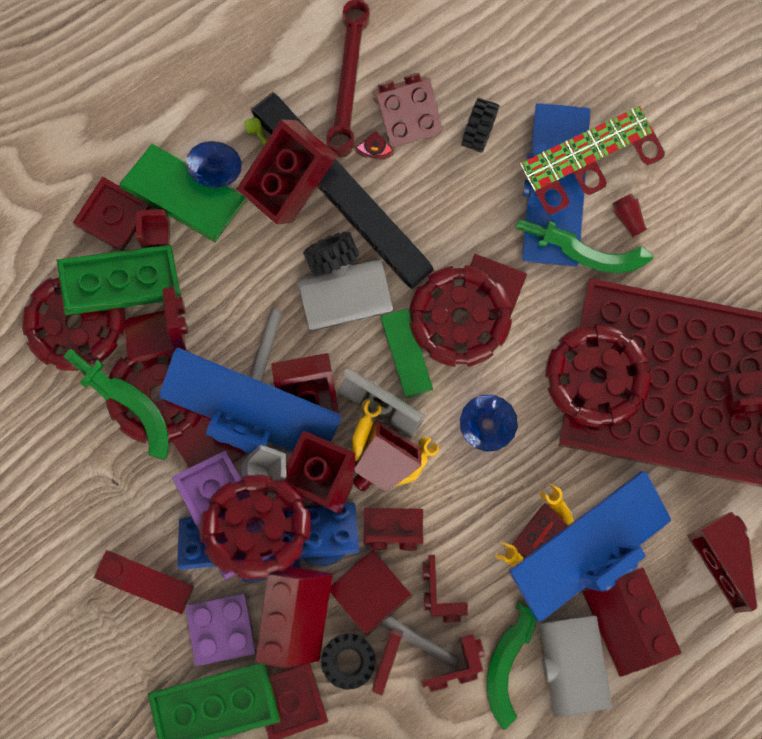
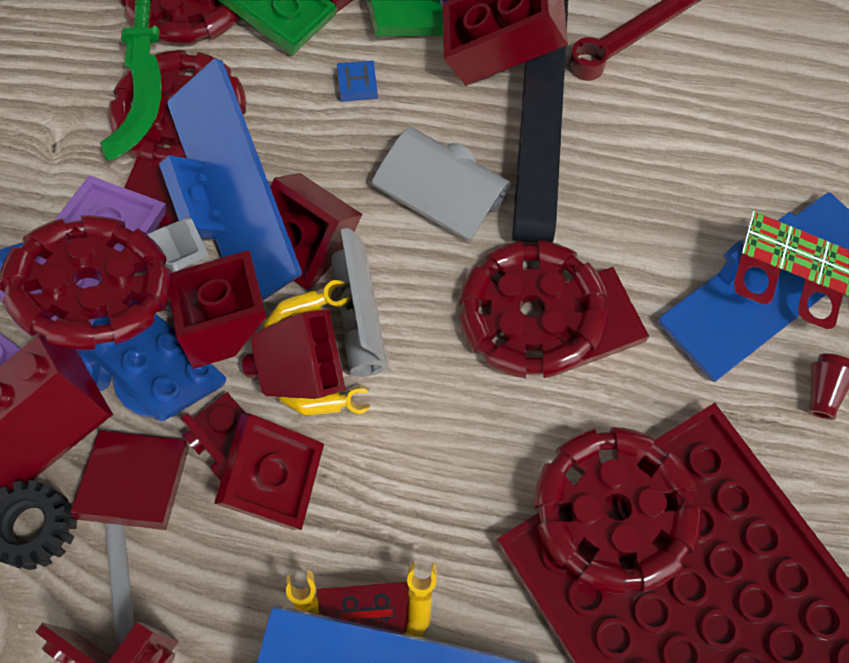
camera: 45 degrees right, 10 degrees down
(157, 332) = (243, 55): dark red bracket -> none
(233, 278) = (357, 81): none -> blue tile
(266, 344) = (321, 159): light grey piece -> none
(331, 253) = (467, 129): black tyre -> none
(374, 147) = (616, 92): dark red tile -> none
(387, 661) = (56, 567): dark red tile -> none
(406, 354) = (437, 294): green tile -> none
(408, 109) = (684, 86): bracket -> none
(431, 521) = (269, 472): none -> dark red tile
(449, 611) = (181, 589): dark red bracket -> none
(480, 125) = (746, 152): black tyre -> none
(498, 412) = (448, 418): clear blue dish -> none
(584, 254) = (735, 378): green sword -> none

